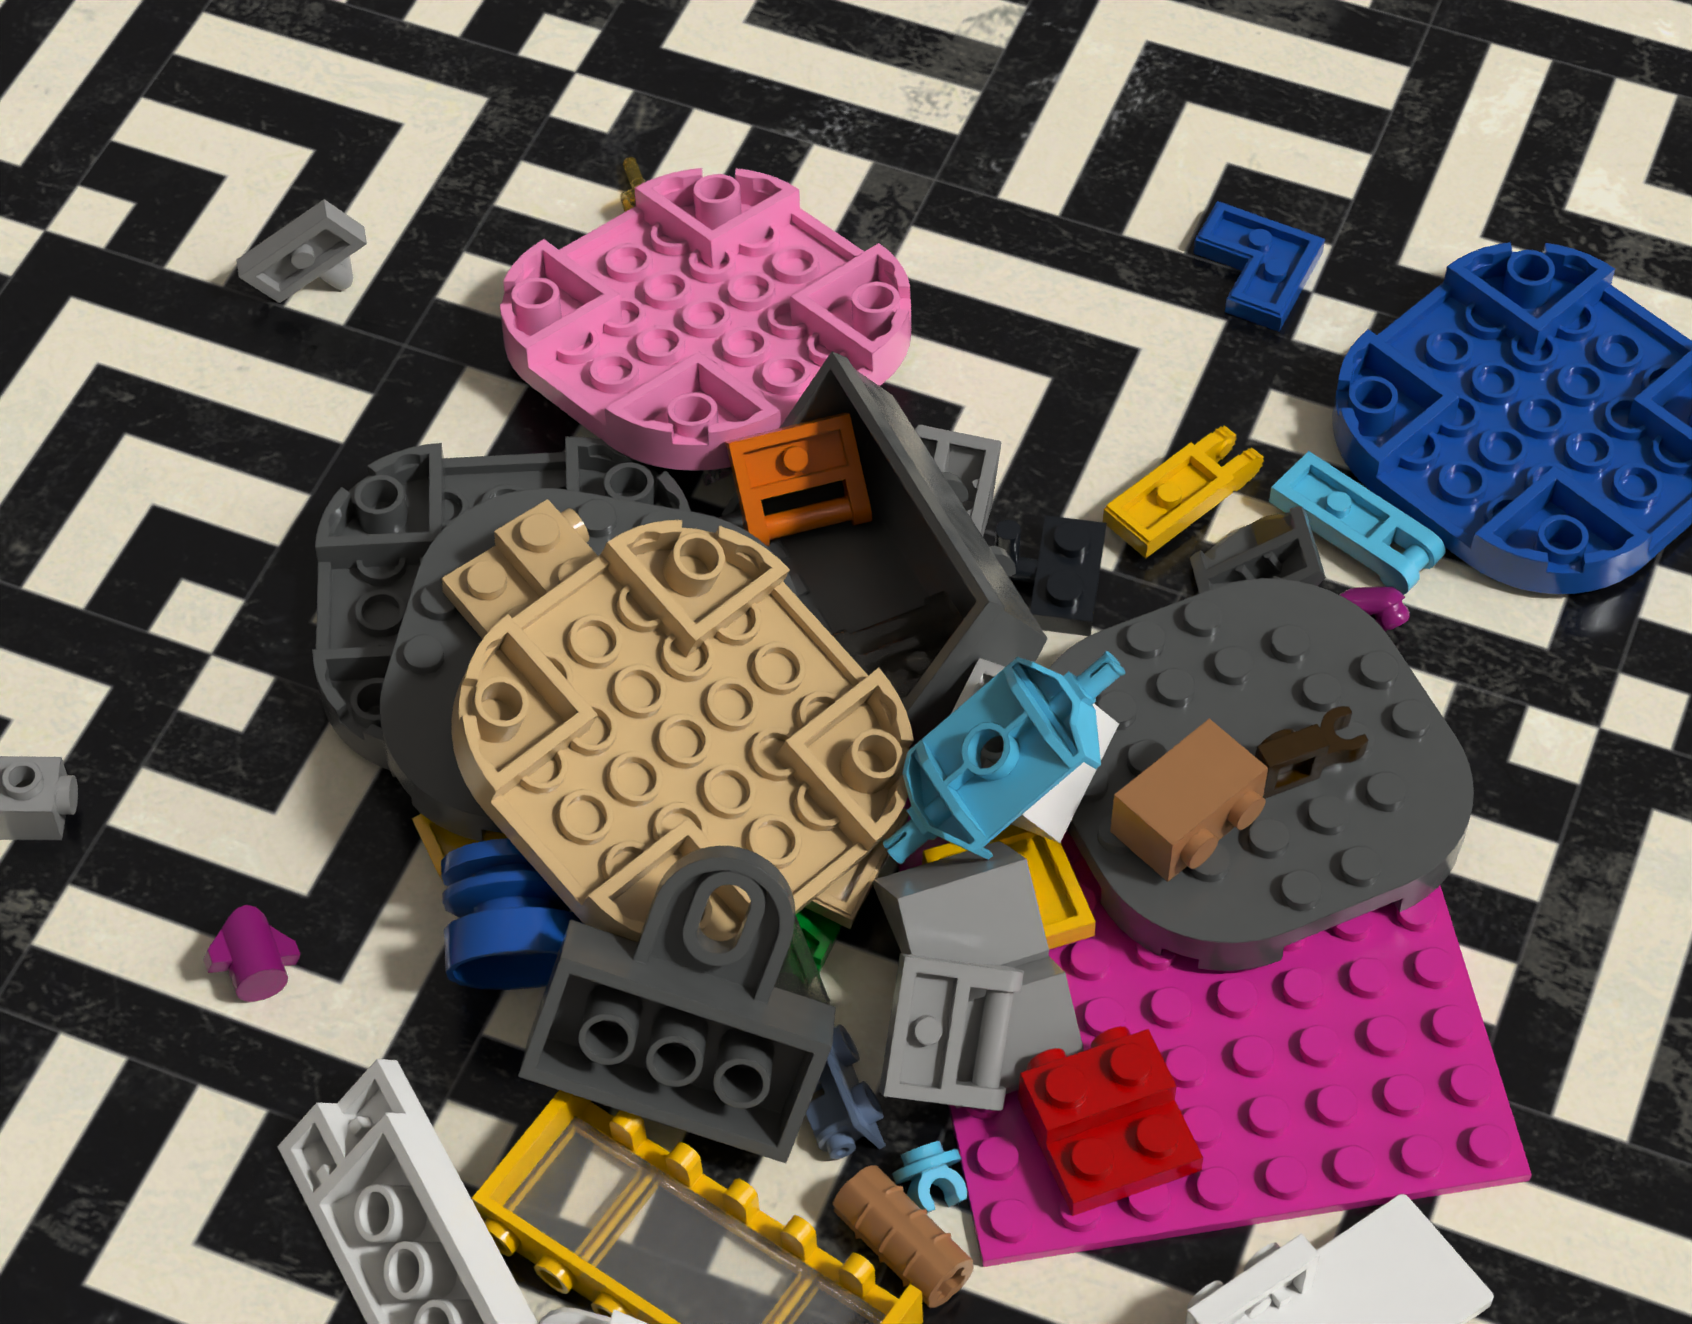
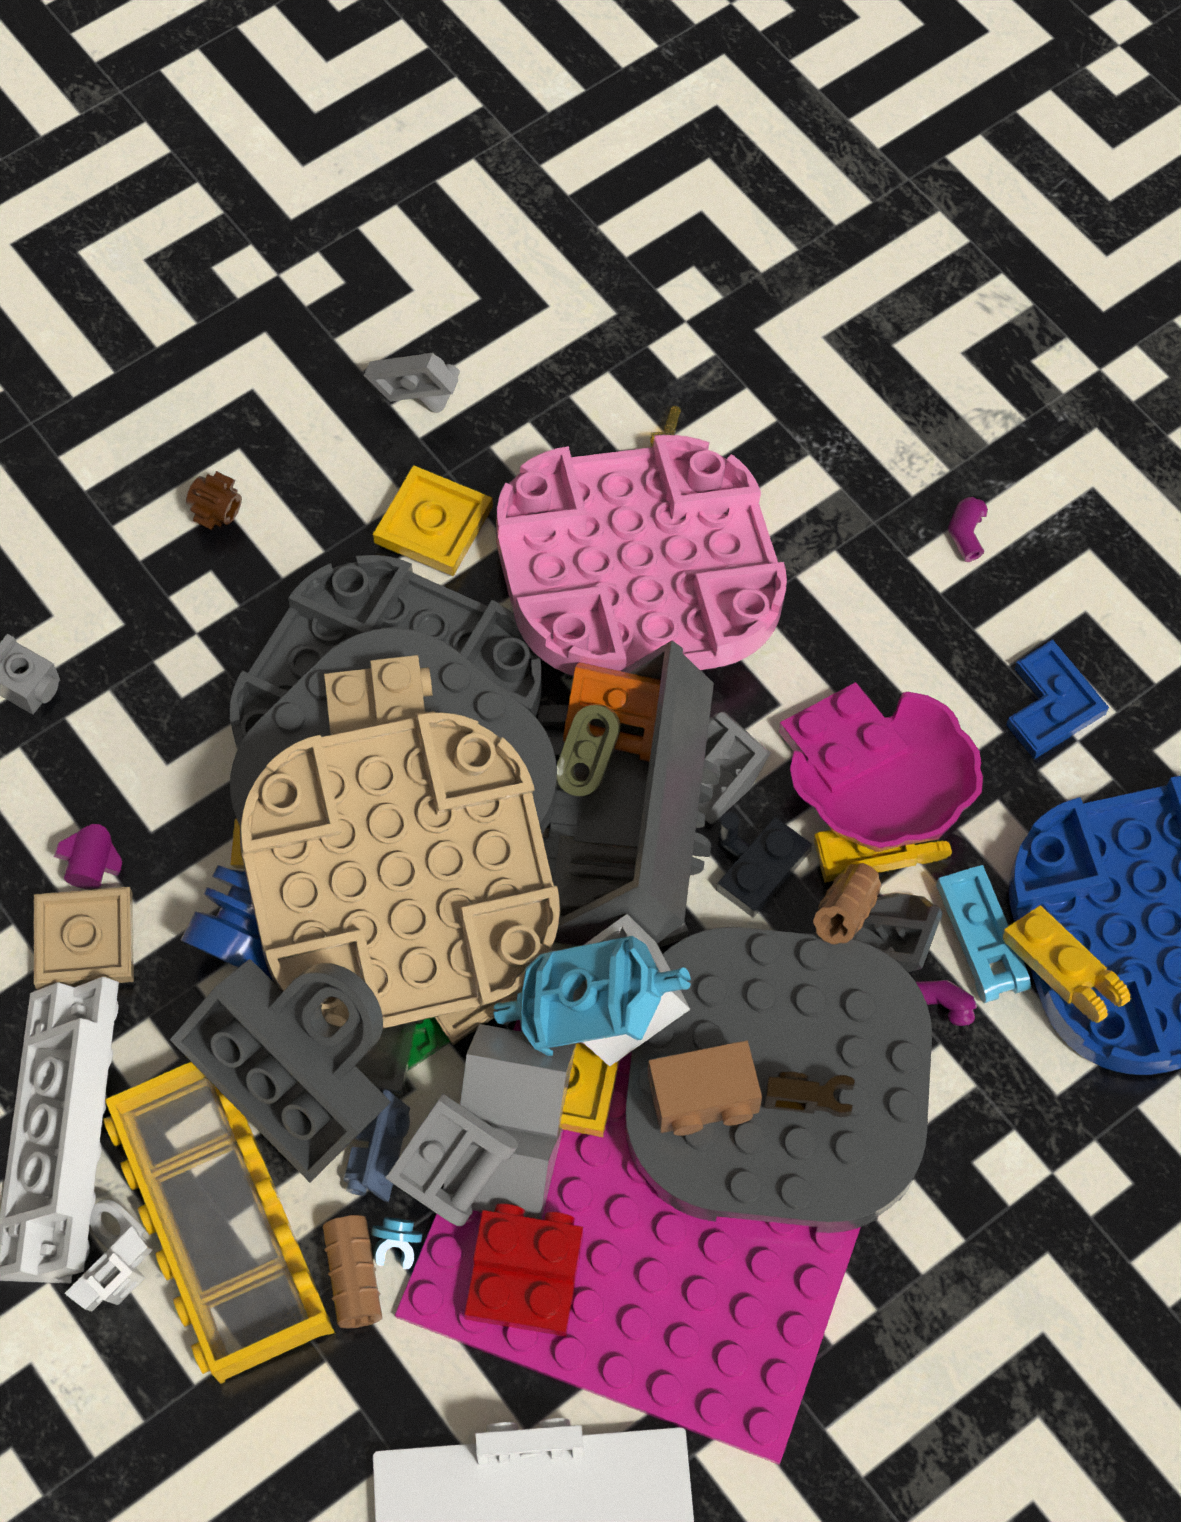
camera: 30 degrees right, 10 degrees up
(140, 492) = (213, 500): none -> reddish brown gear
(304, 1044) = (83, 936): none -> tan plate
(426, 395) = (433, 520): none -> yellow plate
(799, 532) = (589, 749): none -> olive plate
(1039, 135) = (962, 527): none -> magenta arm
(1148, 409) = (881, 775): none -> dark pink animal
(1199, 550) = (847, 903): none -> medium nougat axle
(1477, 496) = (1065, 963): none -> yellow hinge

